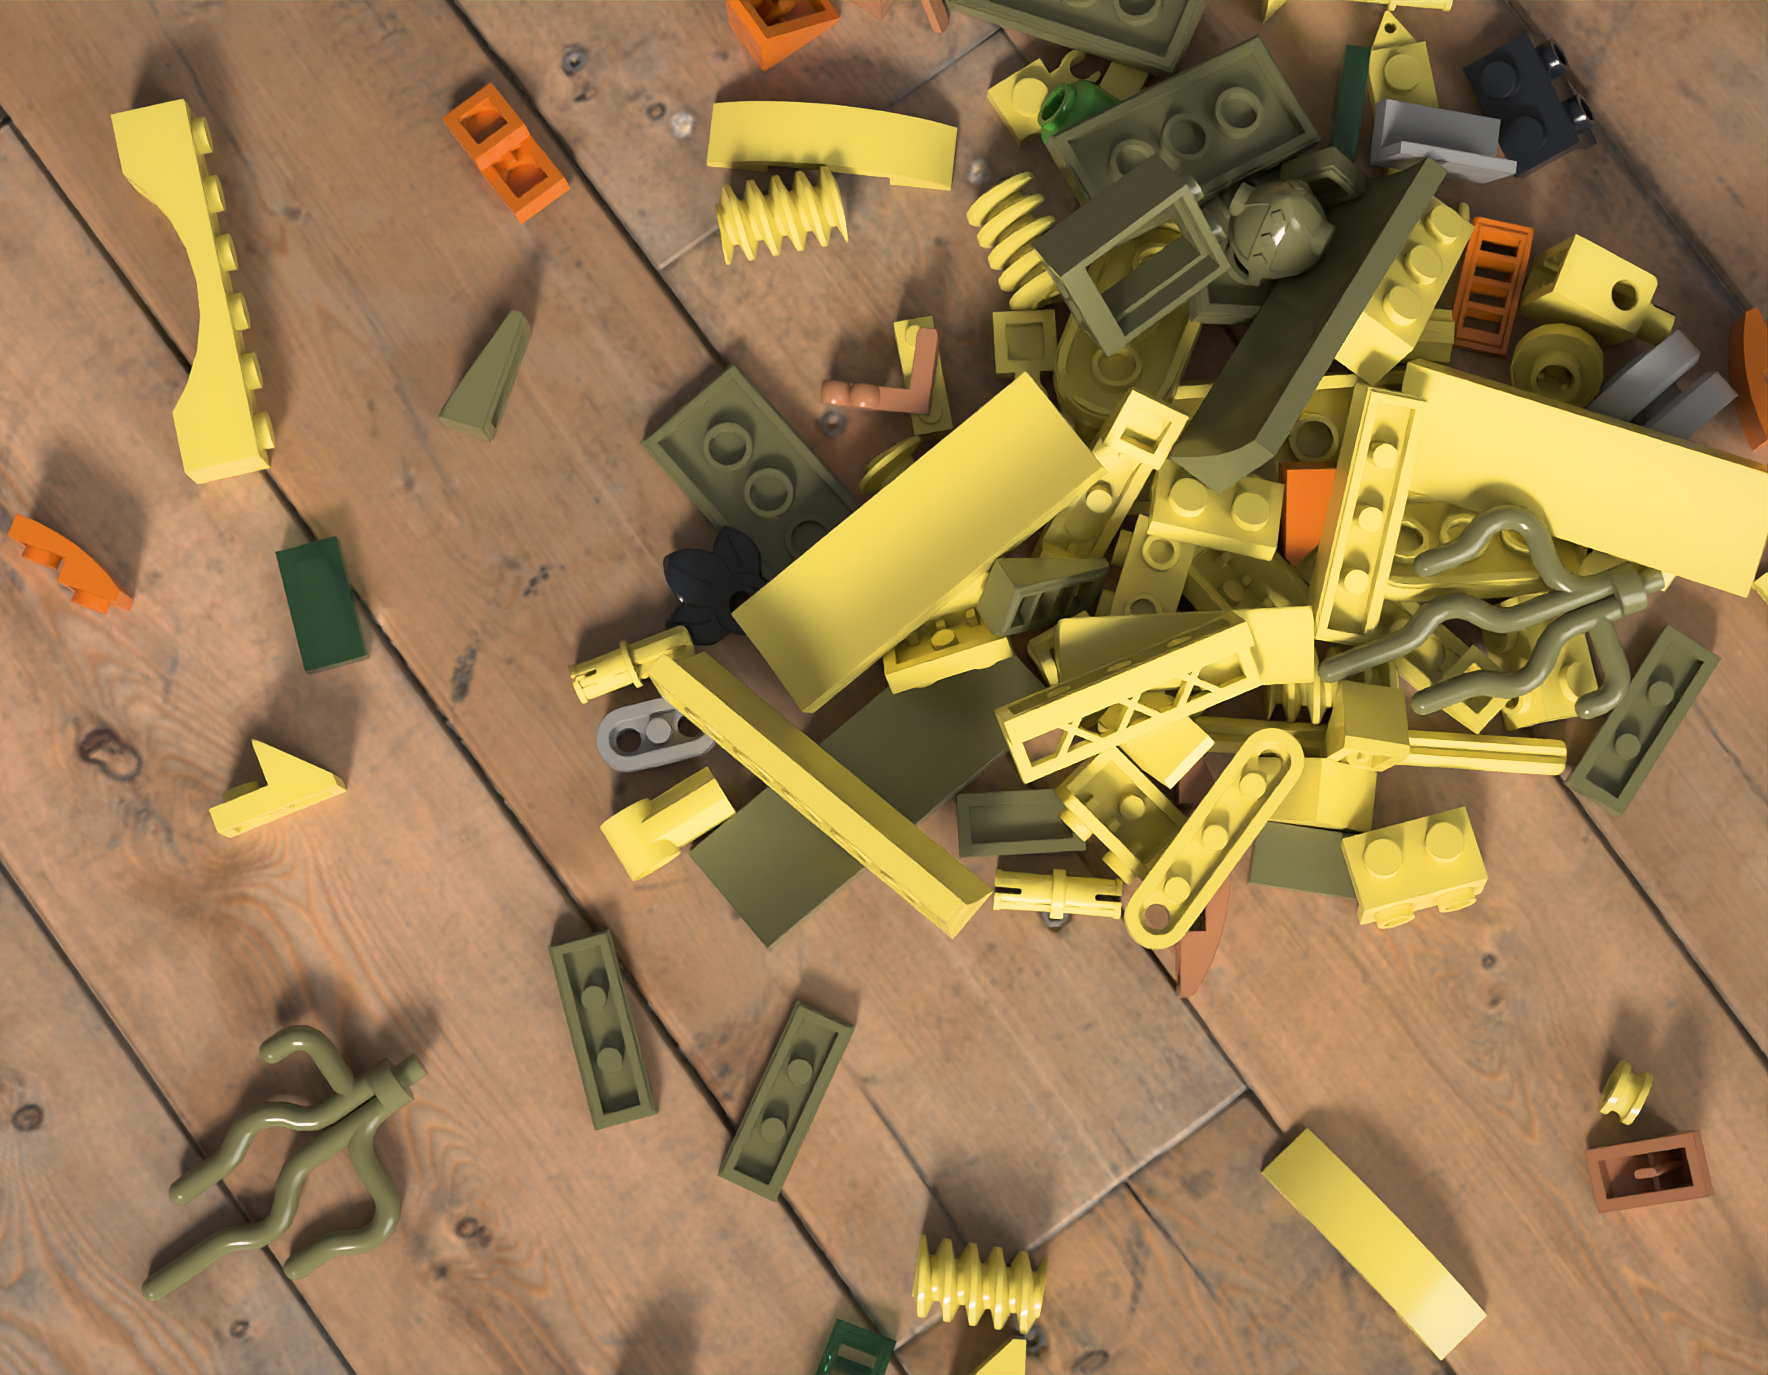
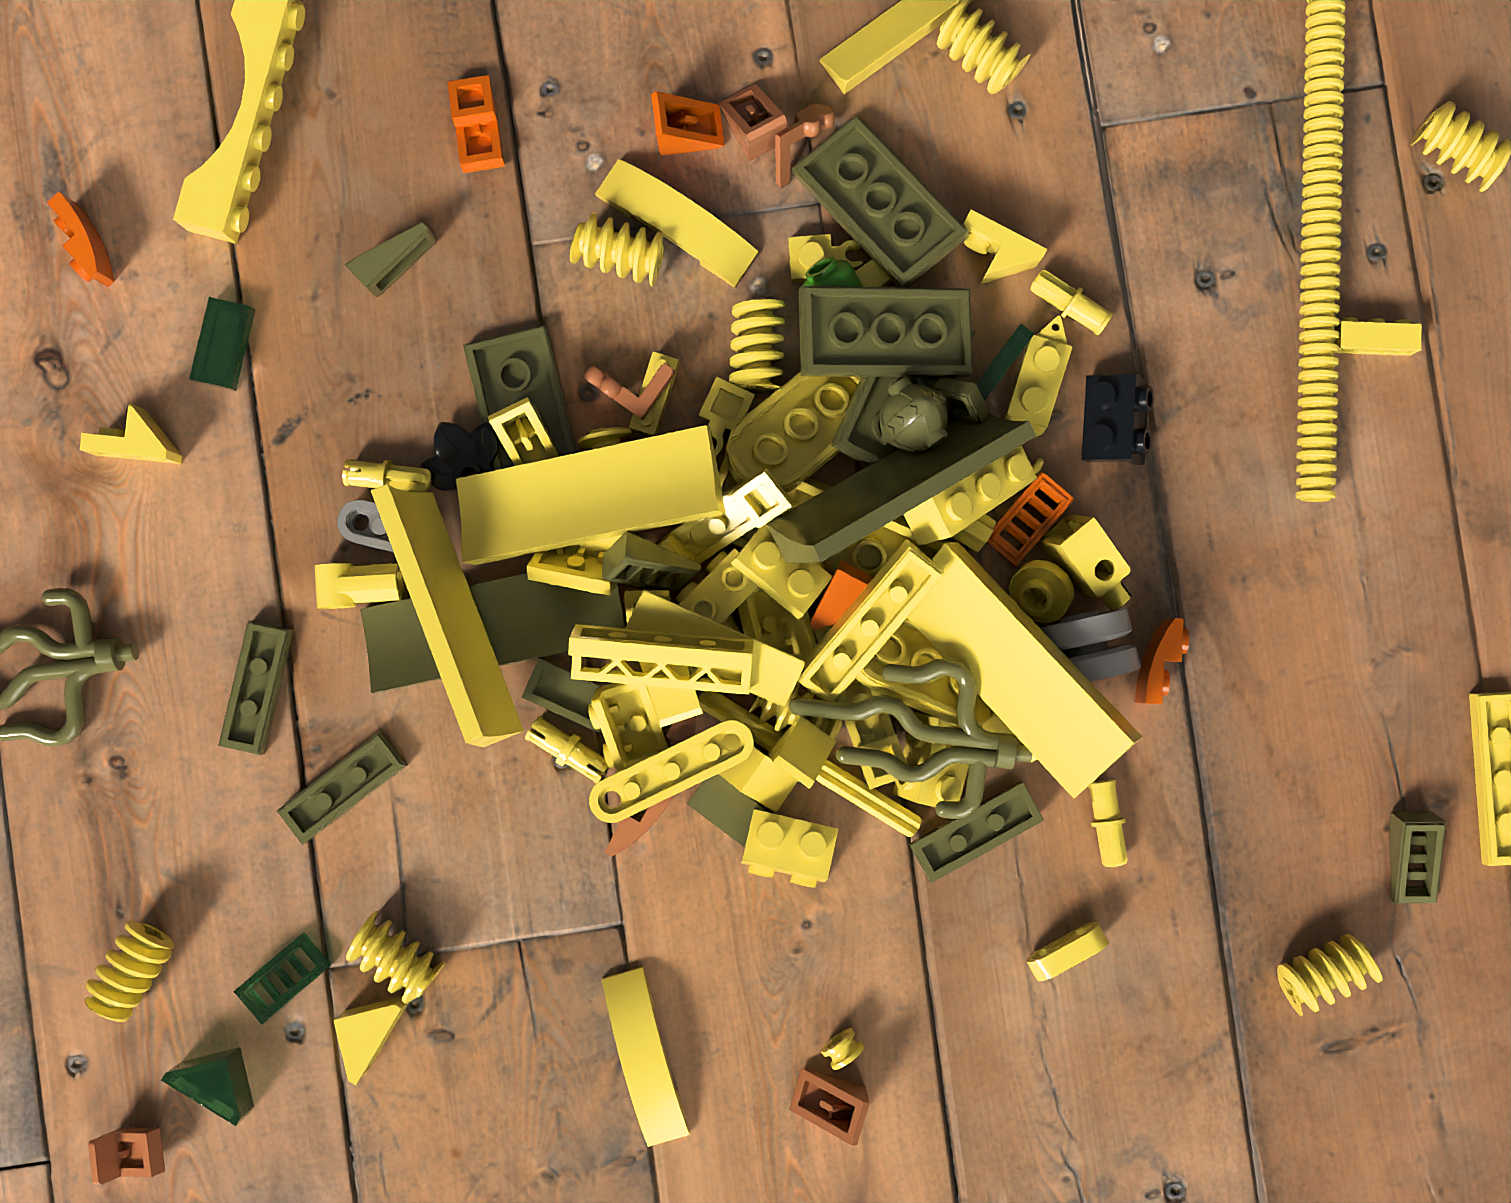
camera: 25 degrees right, 5 degrees up
(787, 510) = (523, 433): none -> light yellow slope
(1155, 285) = (814, 413): olive window -> none
(1454, 139) = (1049, 414): light grey panel -> none

